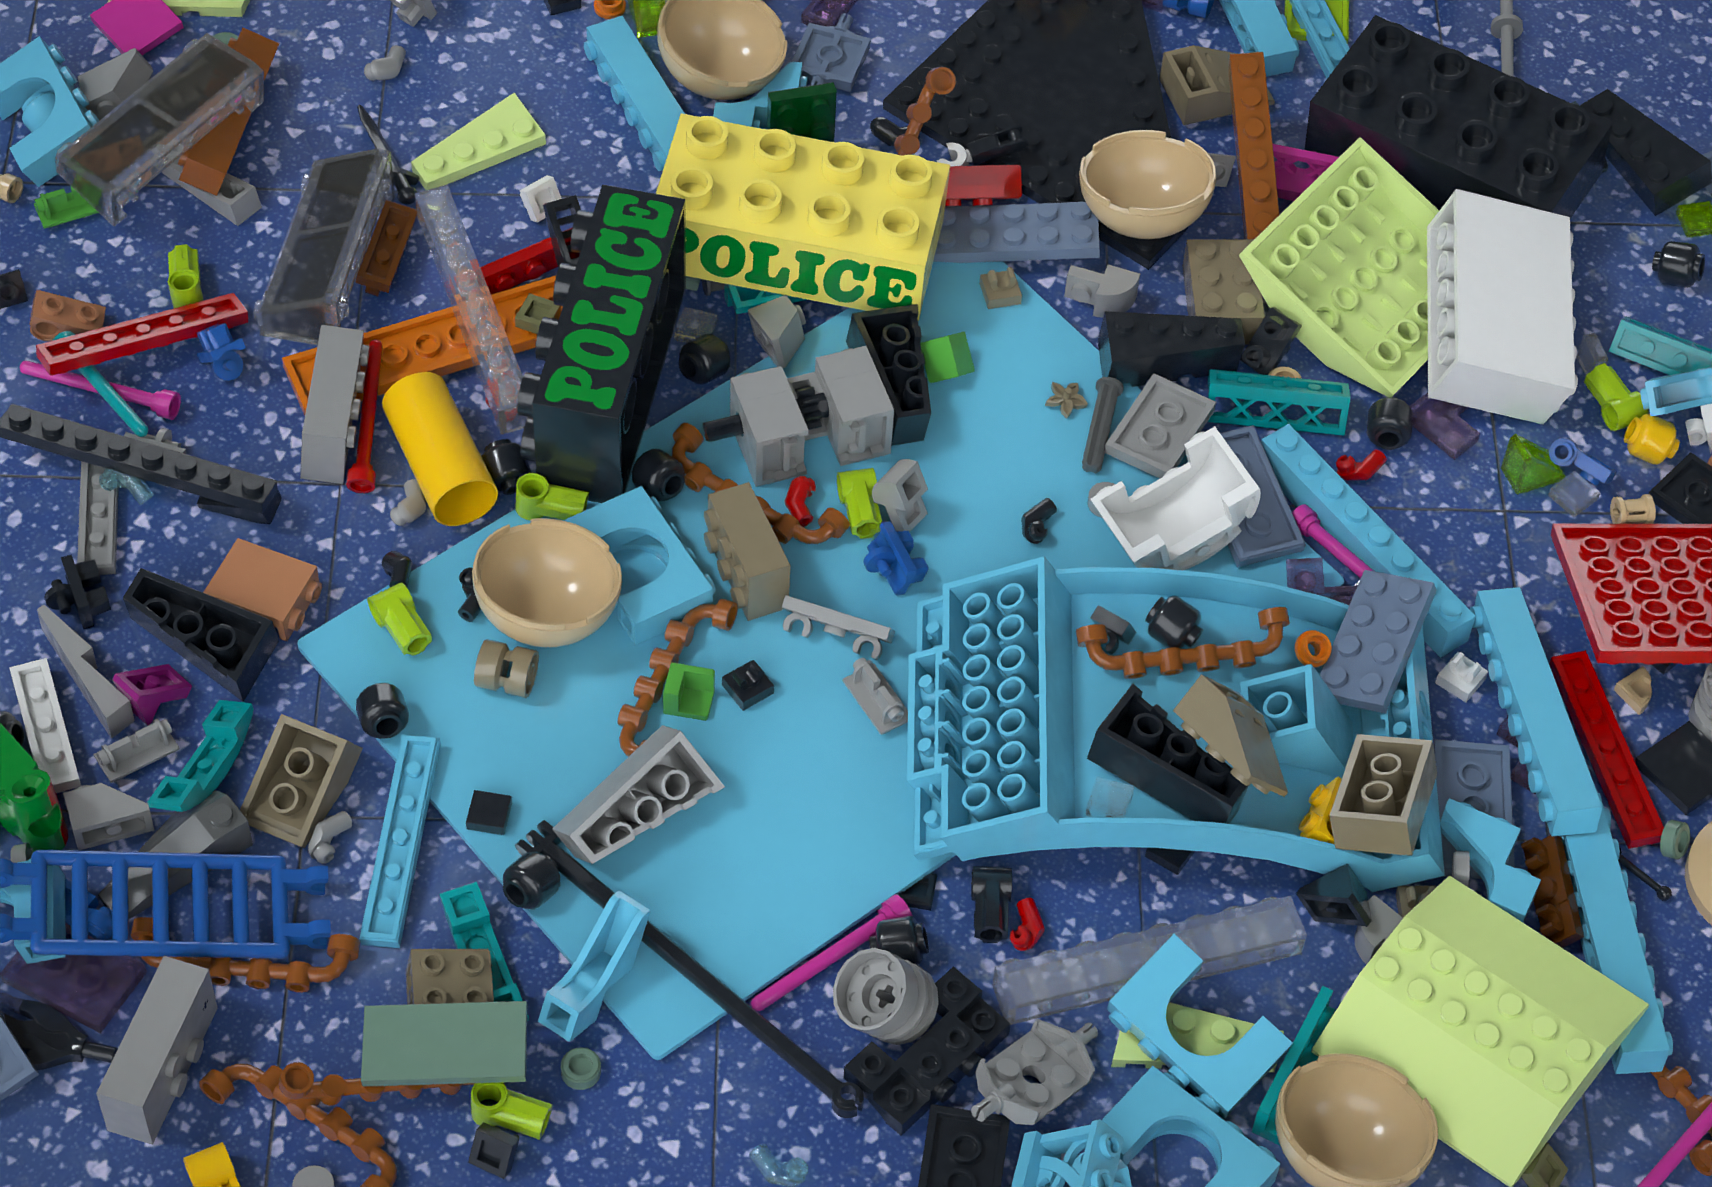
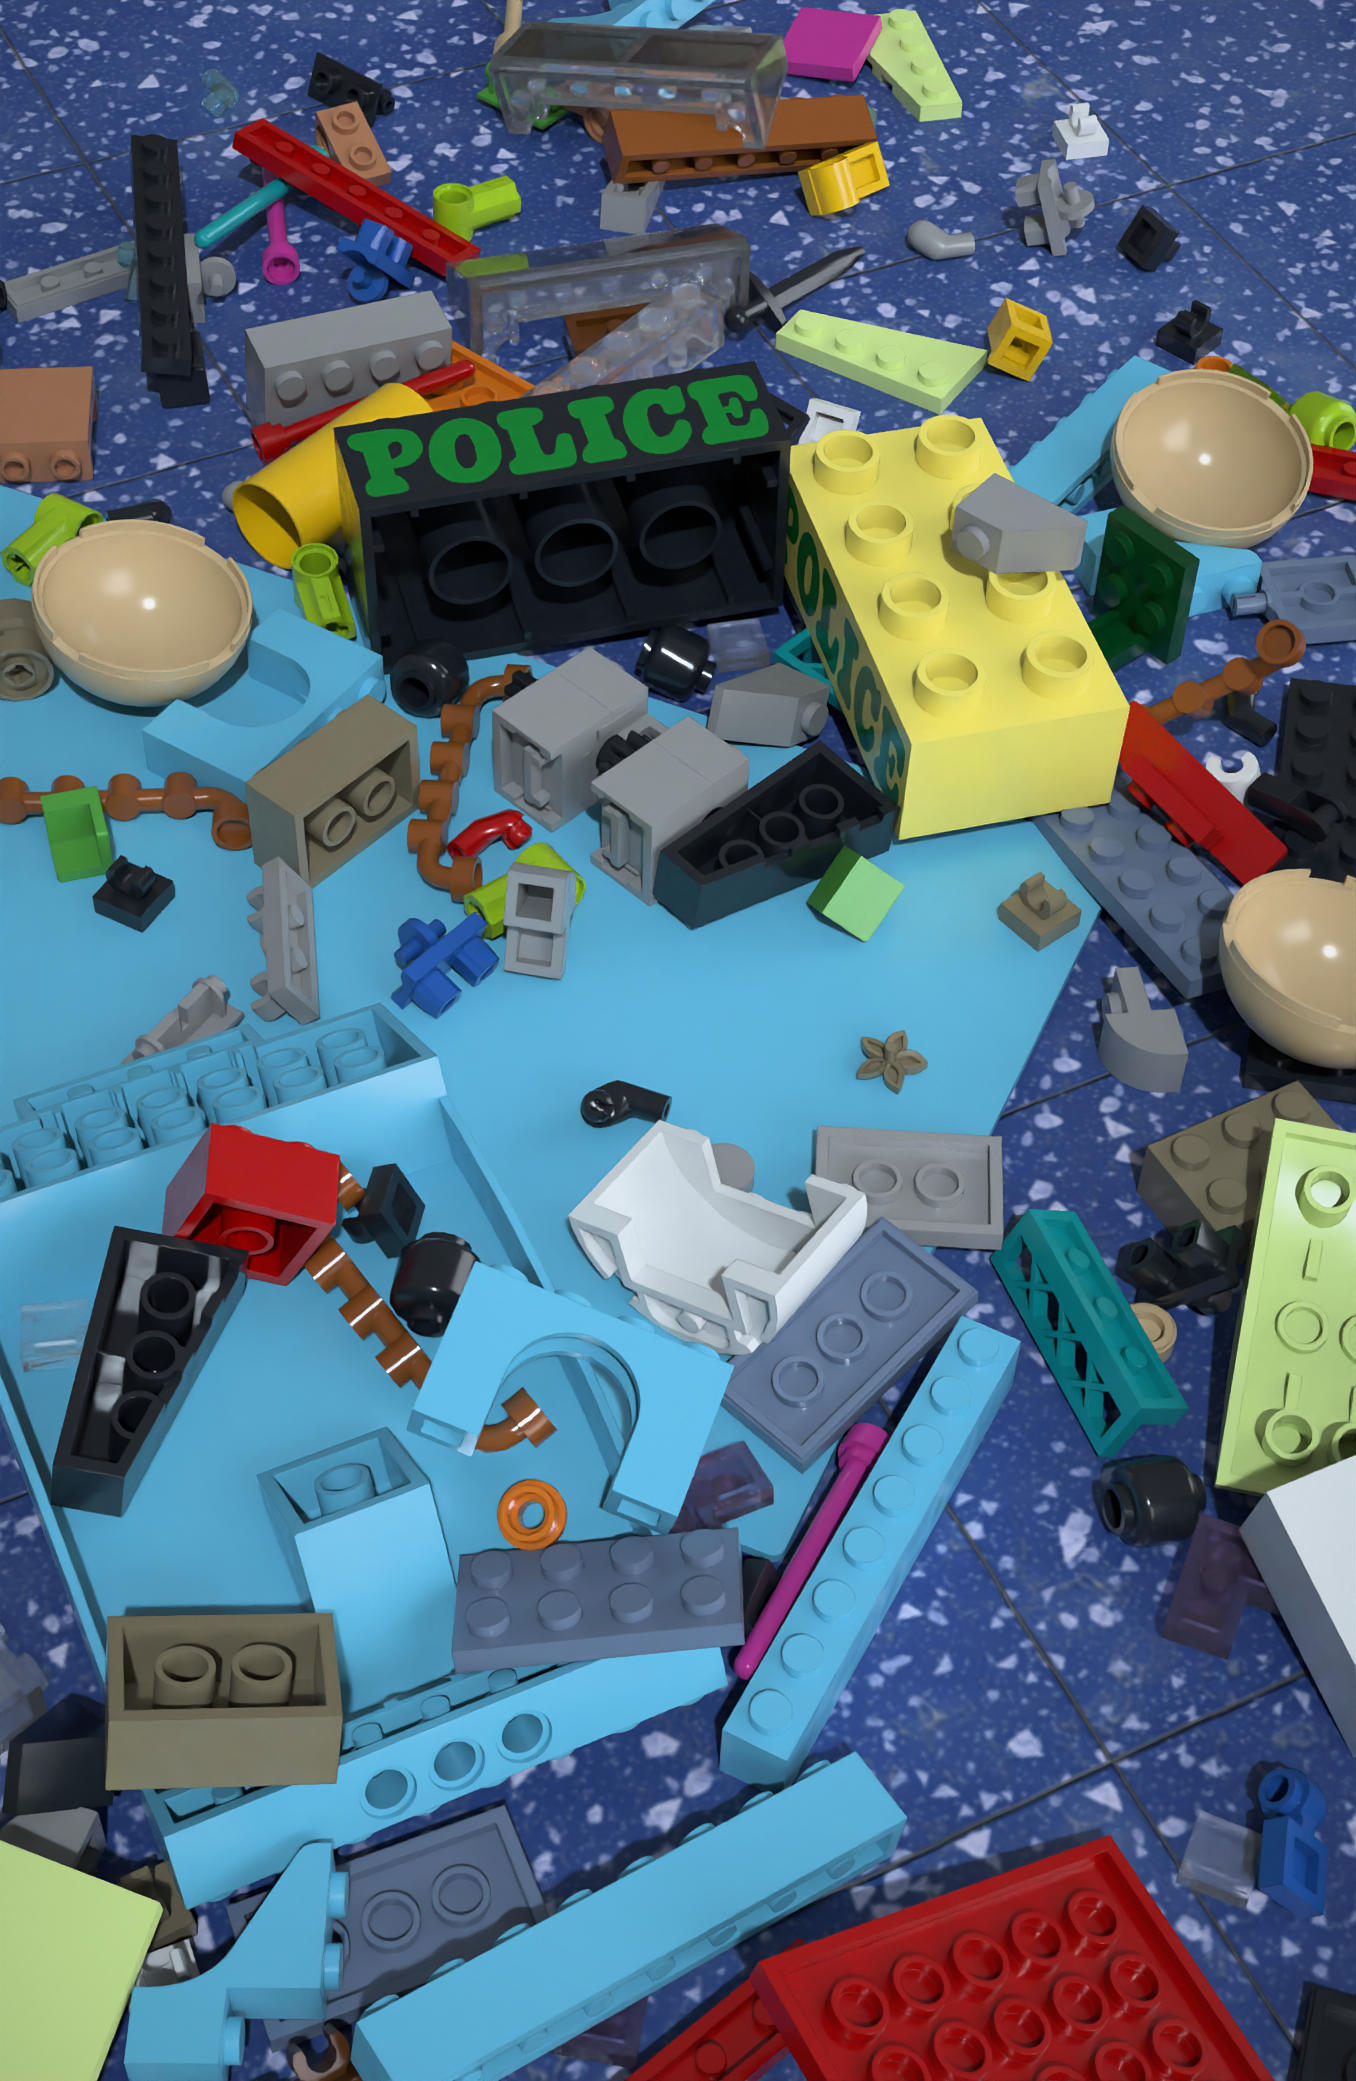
camera: 65 degrees right, 5 degrees down
(298, 85) = (843, 179): none -> yellow plate
(520, 72) = (1018, 339): none -> yellow brick
(818, 139) = (1016, 530): none -> light grey slope
(1104, 669) = (255, 1198): none -> red brick
(1108, 391) = (868, 1111): dark grey axle -> none
(1167, 345) = (1070, 1137): black wedge -> none
(1233, 733) = (192, 1417): dark tan slope -> none
(1296, 556) = (666, 1384): none -> medium azure arch
(1364, 470) = (1035, 1501): red arm -> none
(1461, 677) = (682, 1804): white tile -> none
(1461, 867) = (210, 1933): light grey tile -> none
(1529, 466) = (1222, 1754): clear neon green slope -> none
(1633, 510) = (1240, 1969): tan bush -> none

